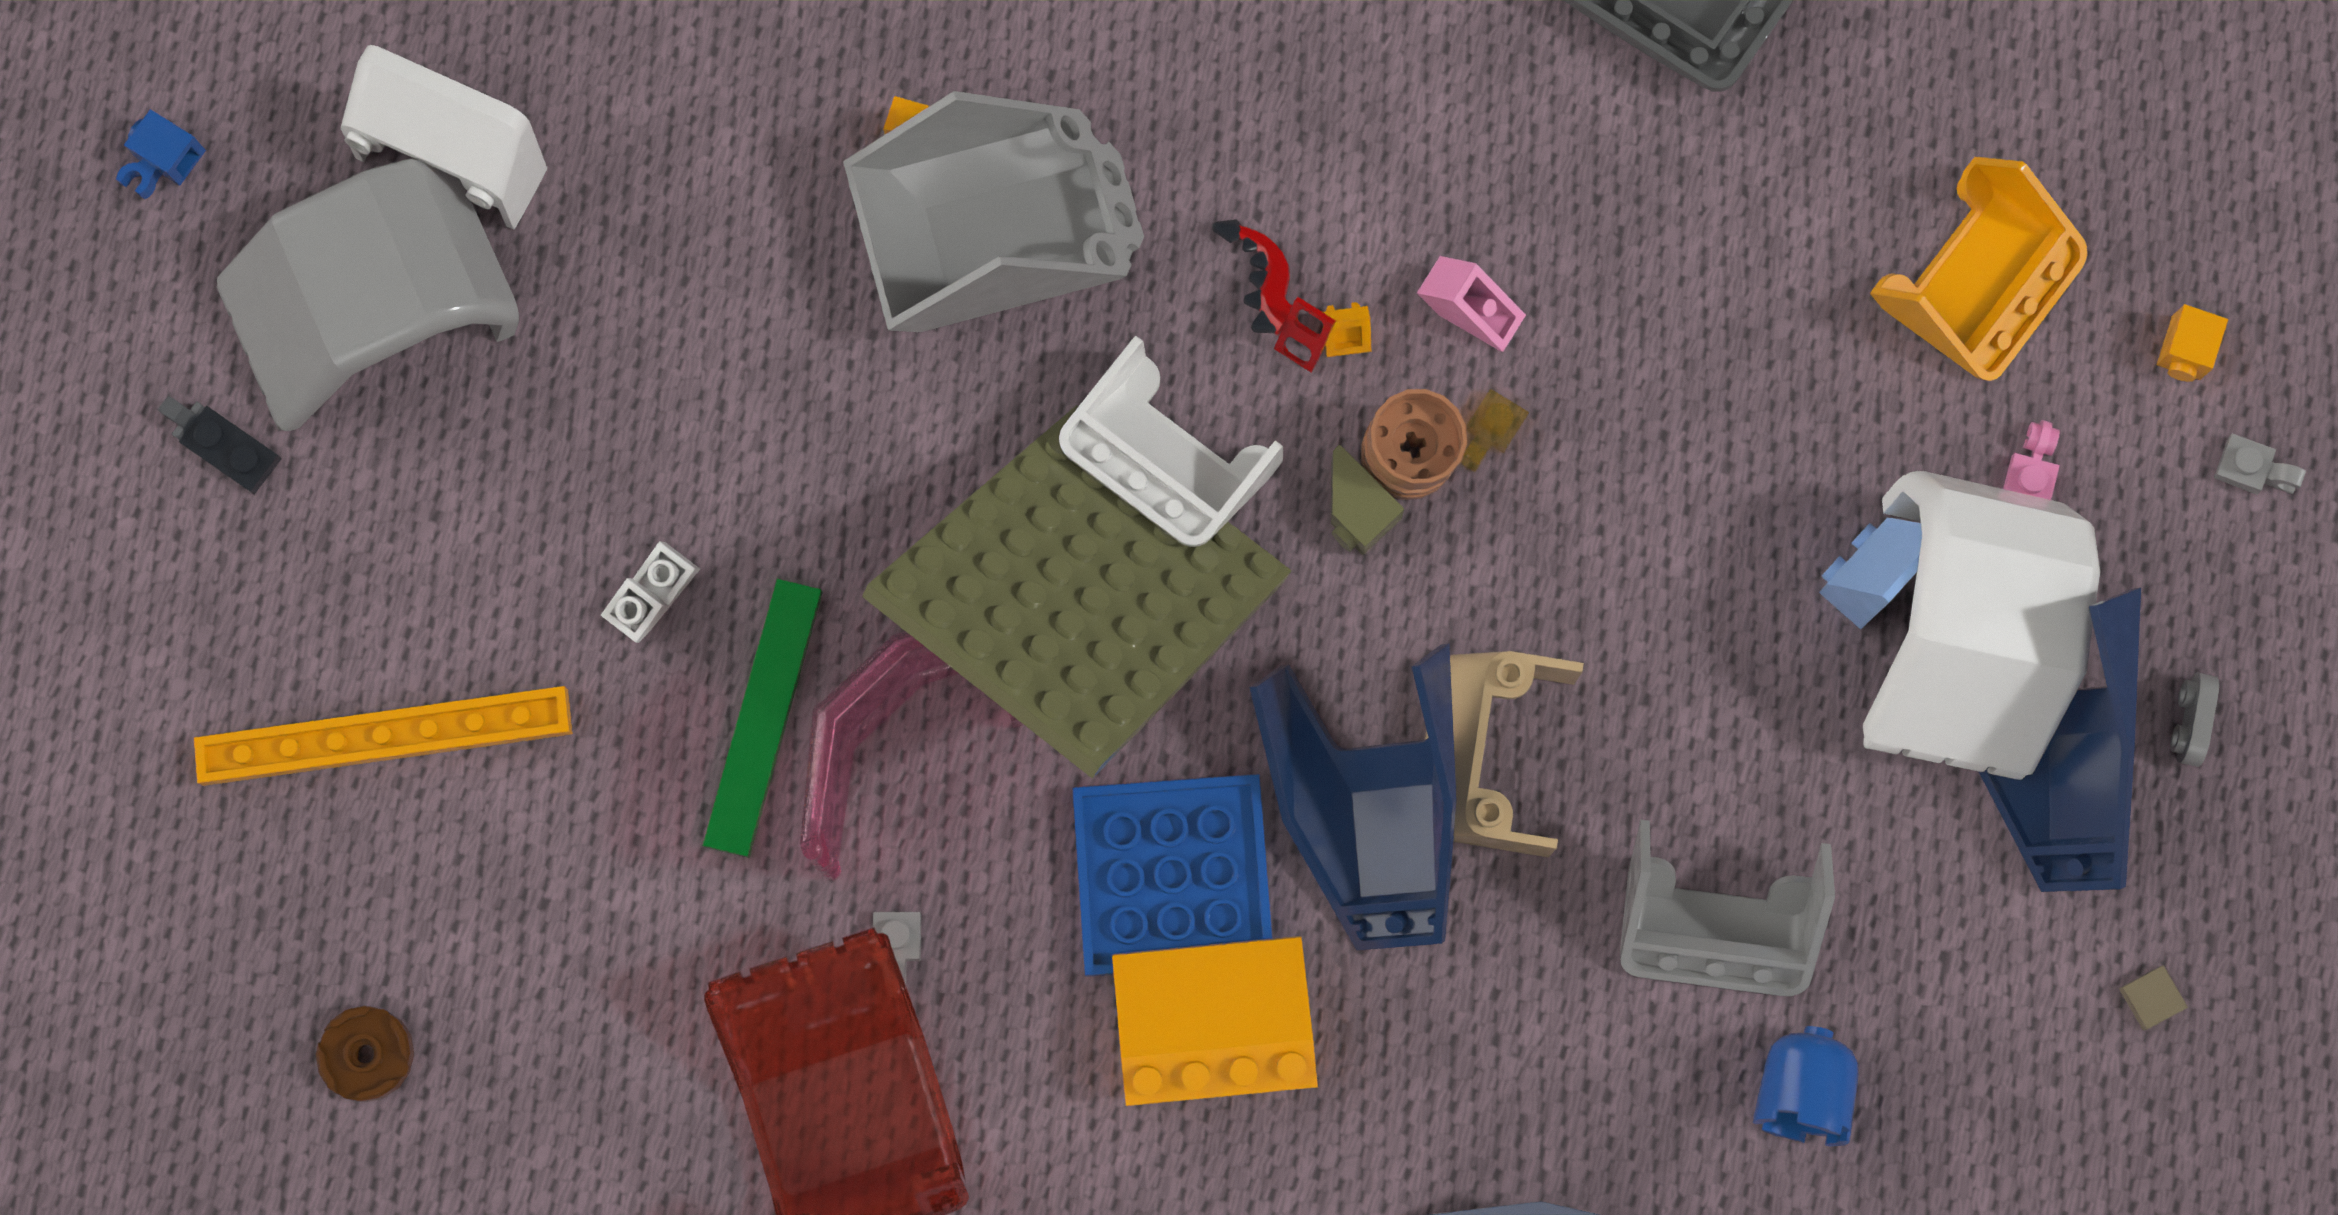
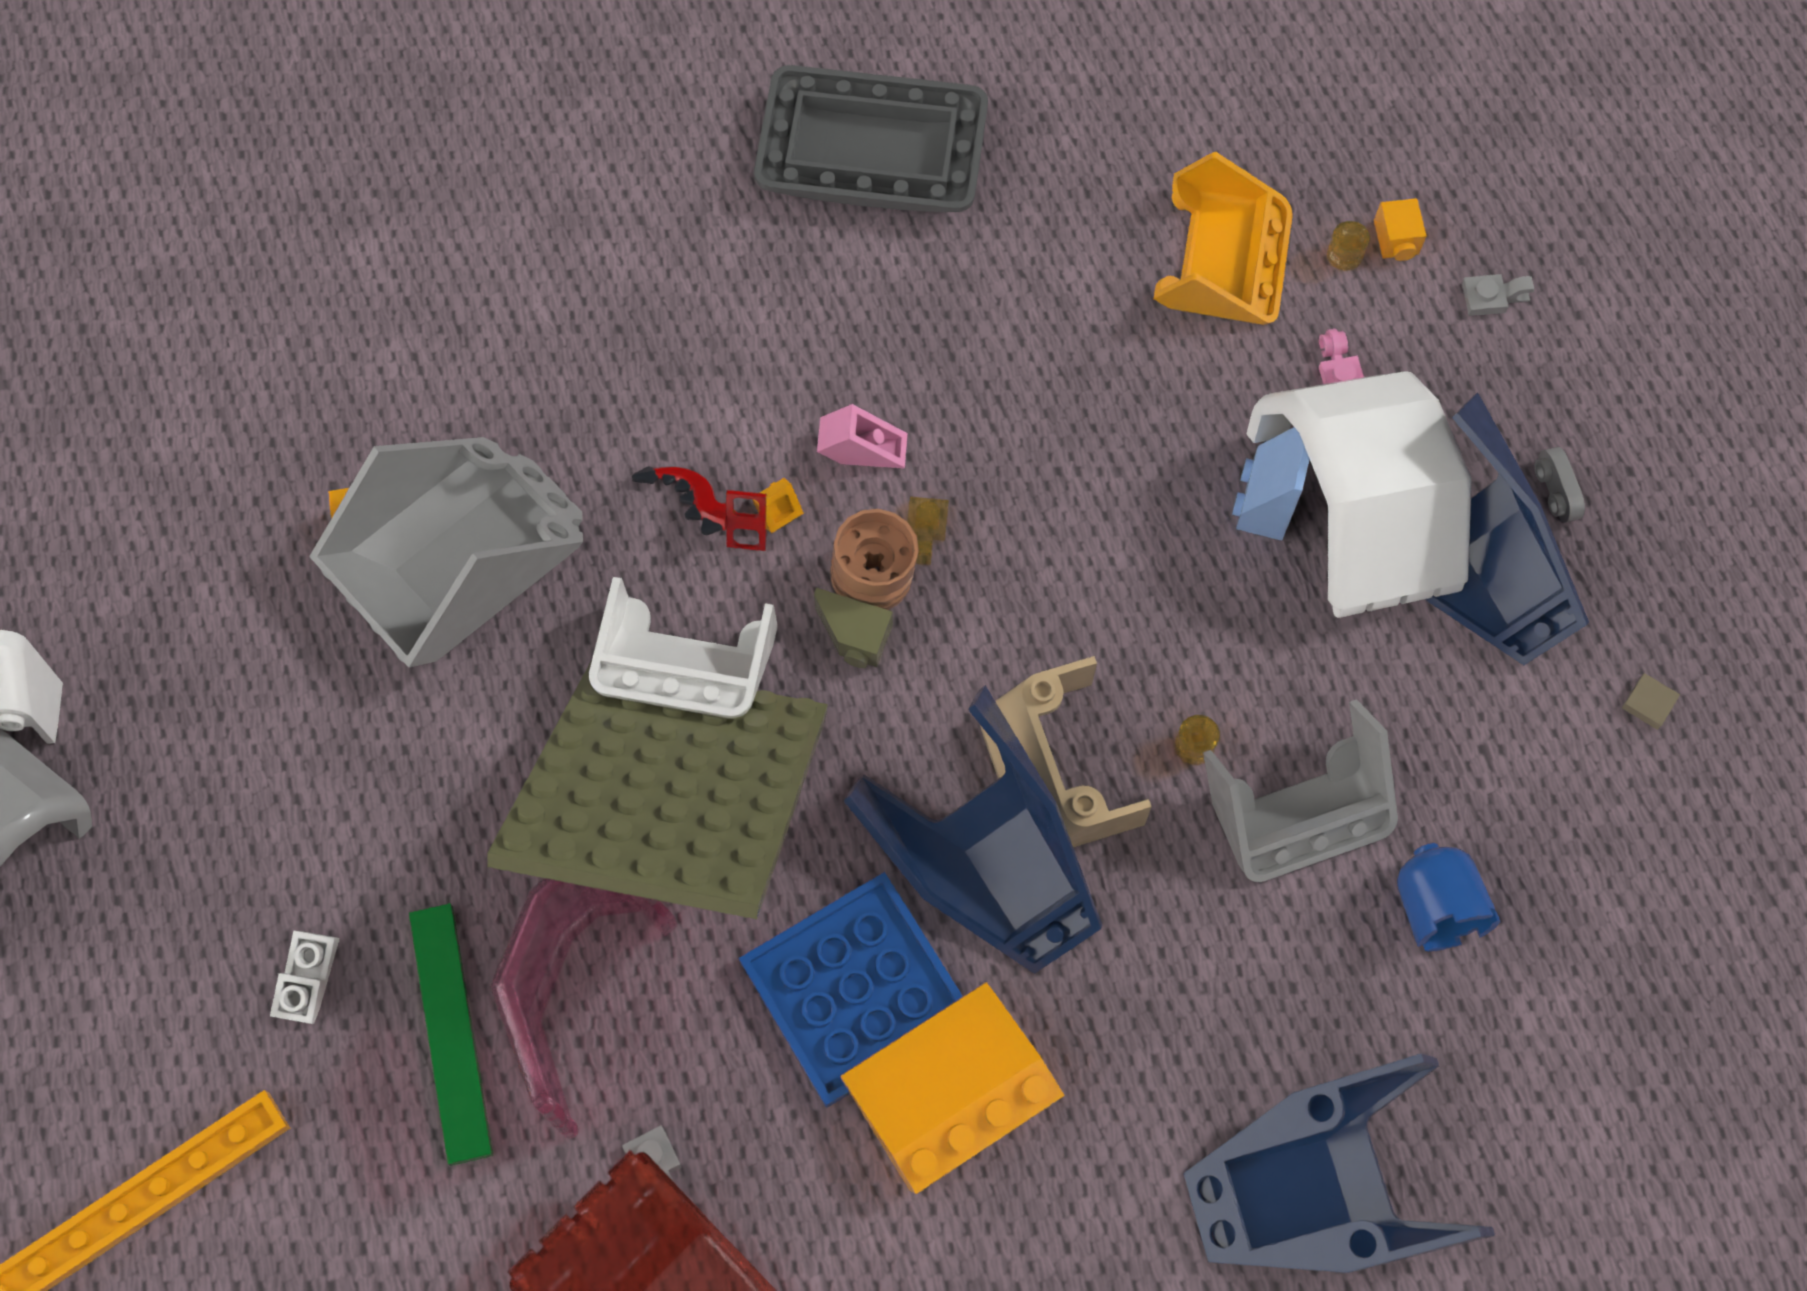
camera: 30 degrees left, 10 degrees down
(1641, 803) = (1191, 747): none -> clear yellow wheel
(2126, 326) = (1348, 245): none -> clear yellow wheel

